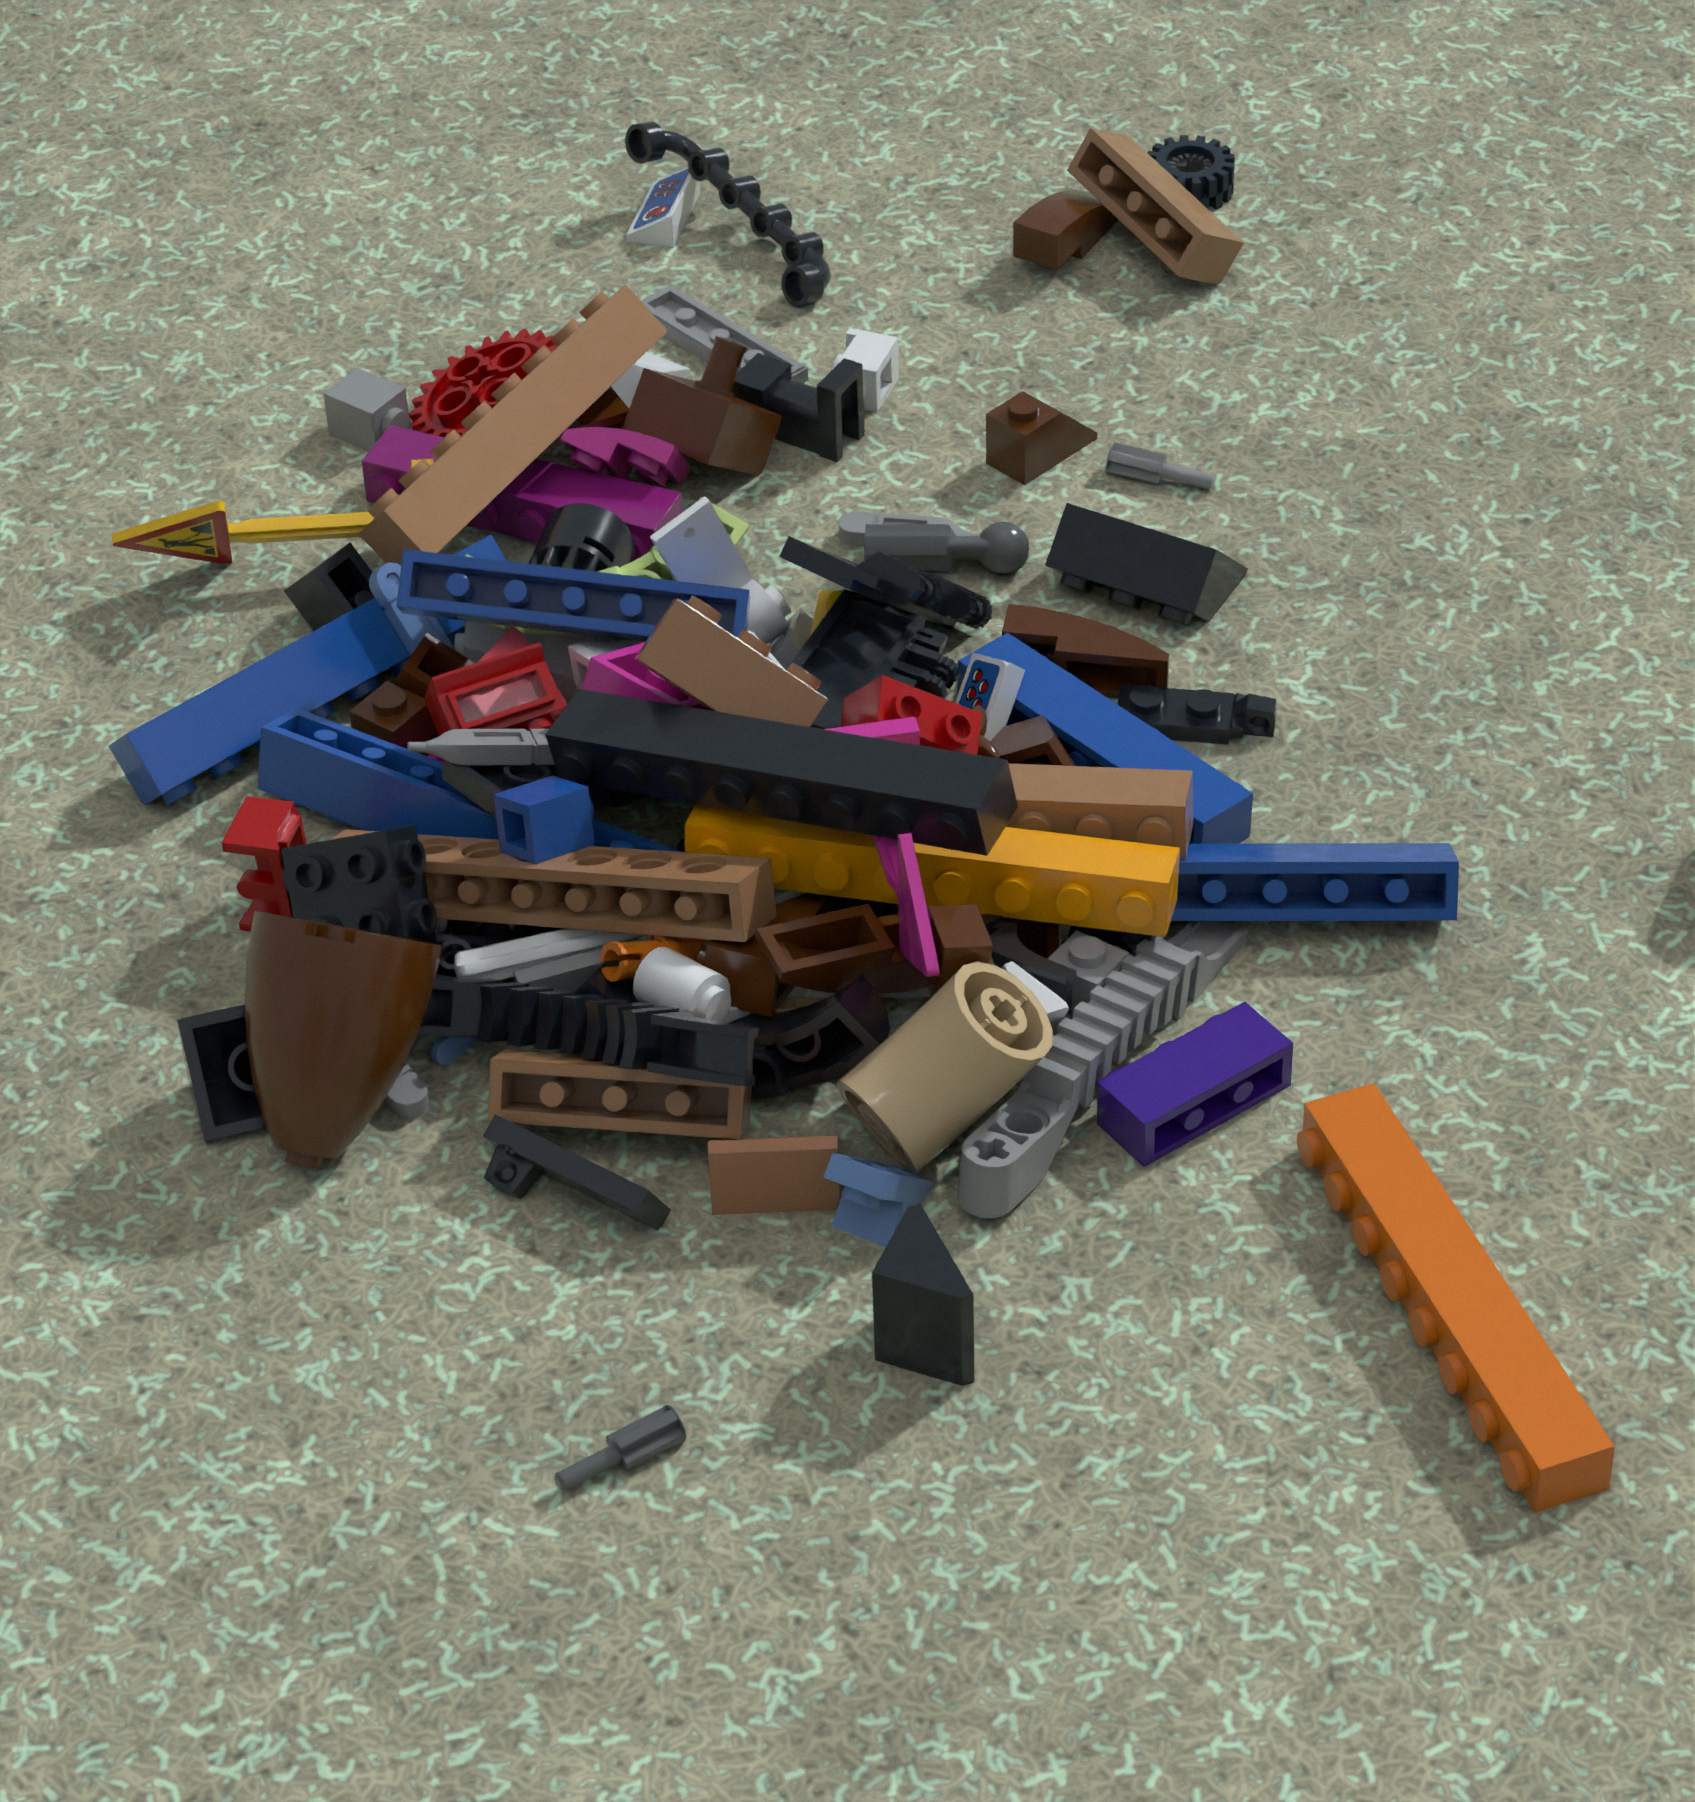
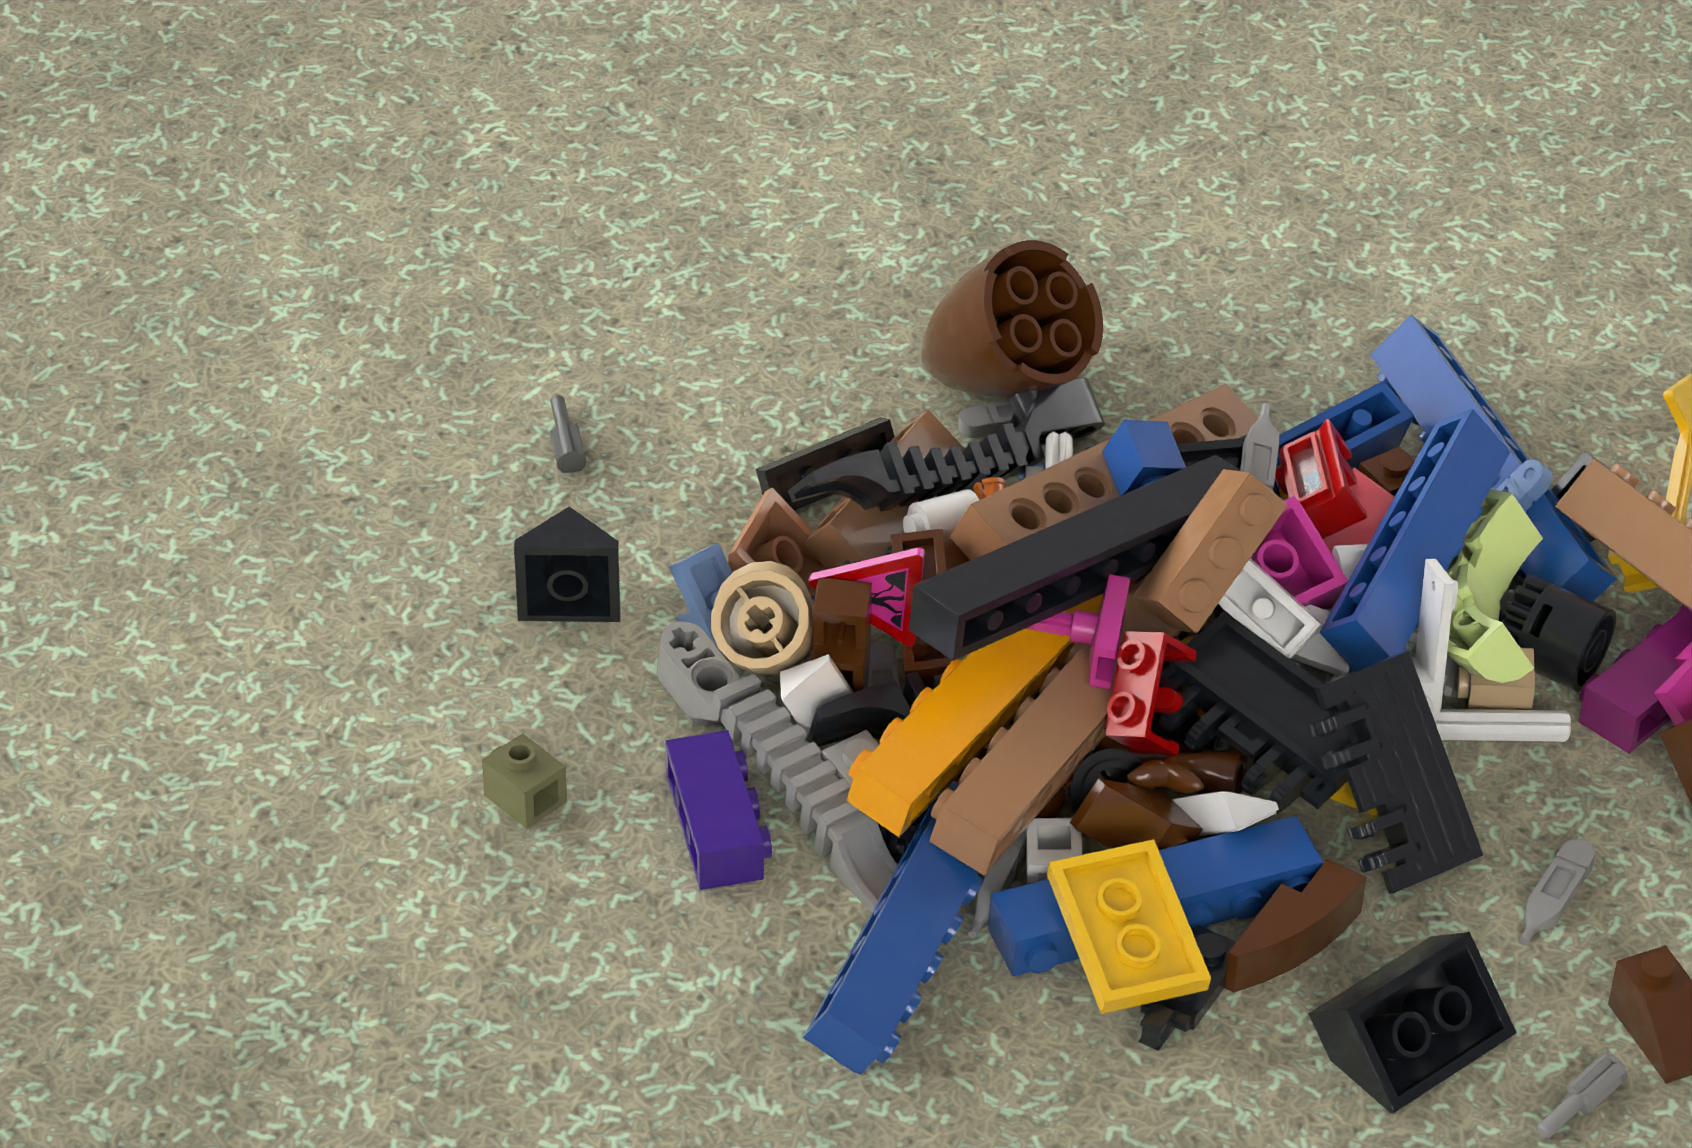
camera: 110 degrees right, 0 degrees up
(262, 831) = (1237, 357): red window -> none
(363, 883) = (1154, 386): black brick -> none
(936, 548) = (1506, 888): dark grey piece -> none
(1195, 712) = (1128, 926): none -> yellow plate
(1255, 1259) = (524, 780): none -> olive brick
(1456, 1300) = (407, 870): orange brick -> none

